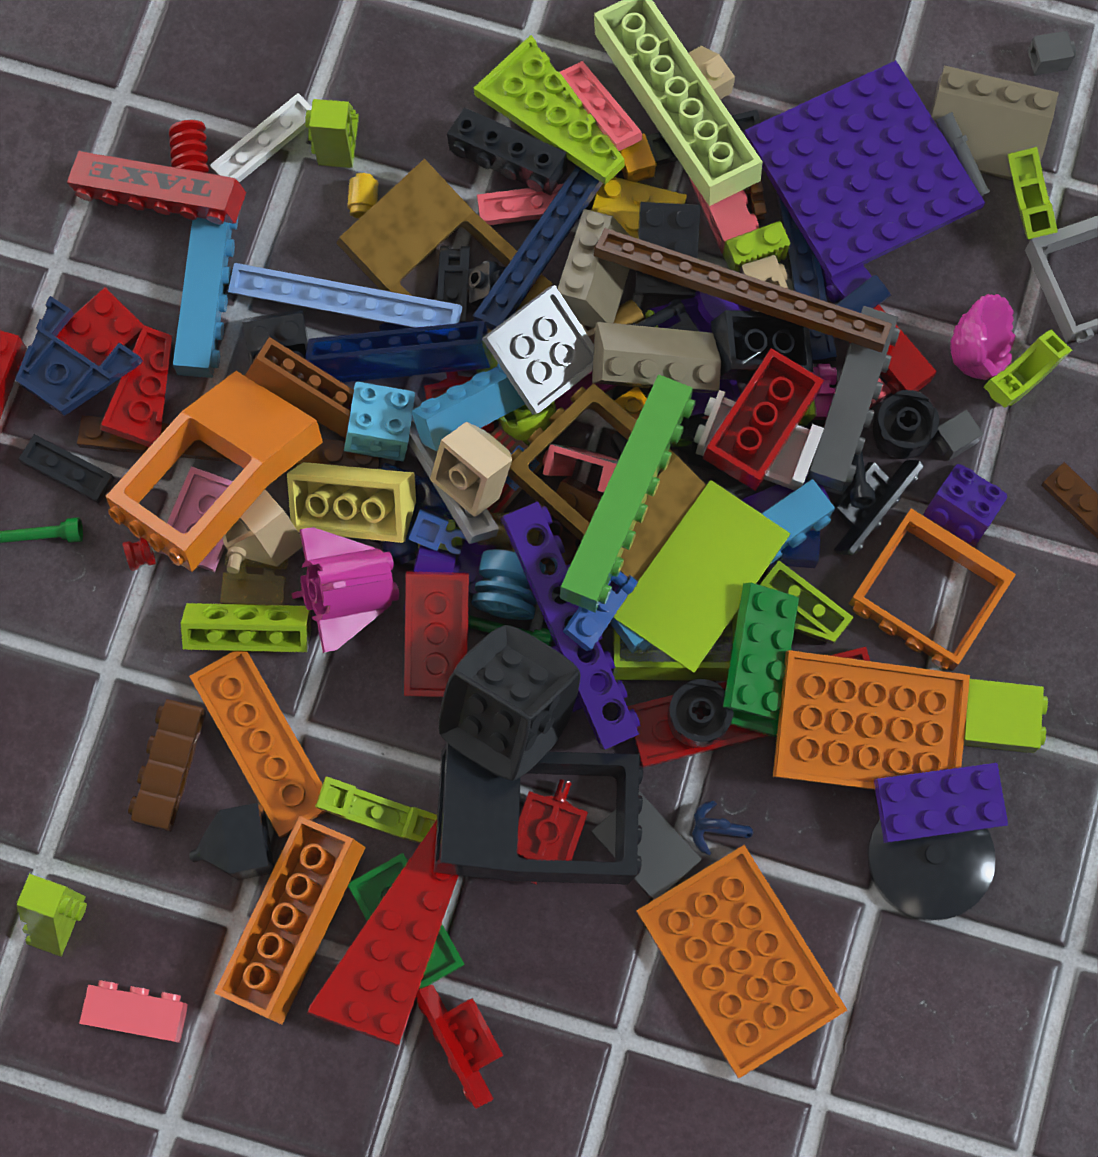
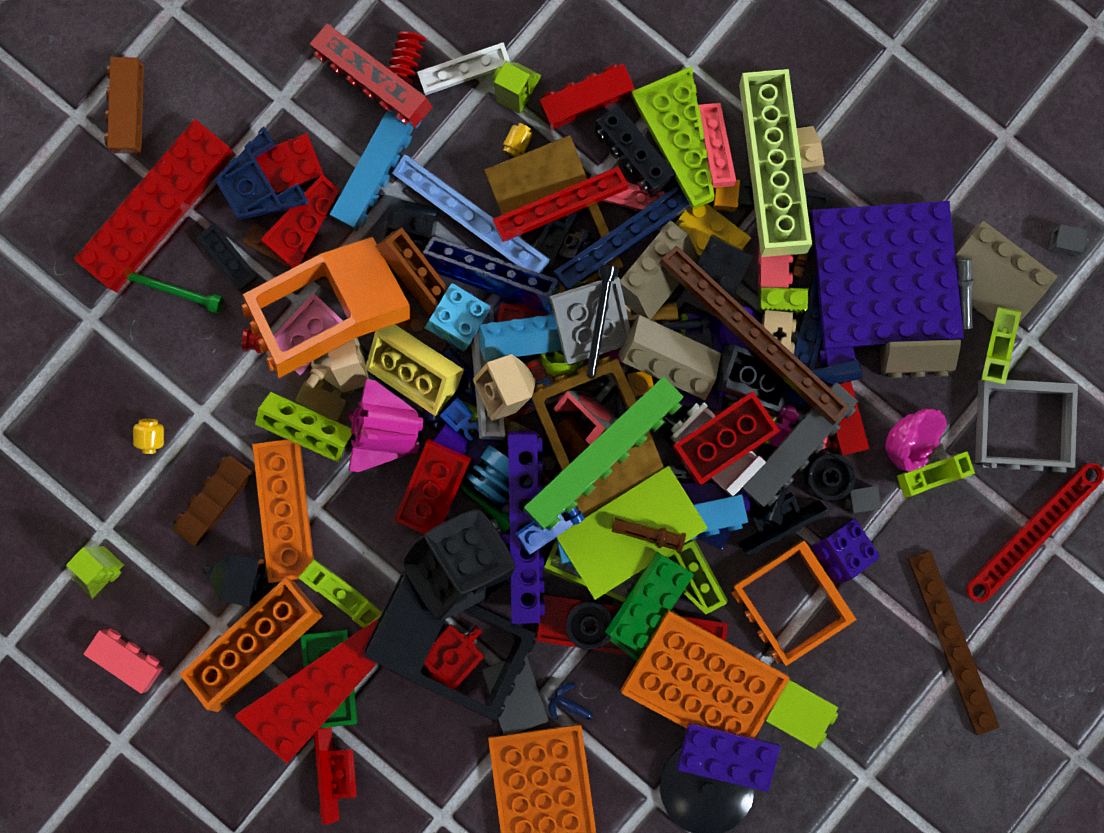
camera: 25 degrees right, 10 degrees up
(54, 720) = (148, 435): none -> yellow head
(423, 114) = (587, 96): none -> red brick
(446, 240) = (560, 204): none -> red plate
(540, 285) = (607, 274): none -> black piece
(738, 563) = (660, 536): none -> reddish brown pin
(944, 246) = (919, 358): none -> dark tan slope

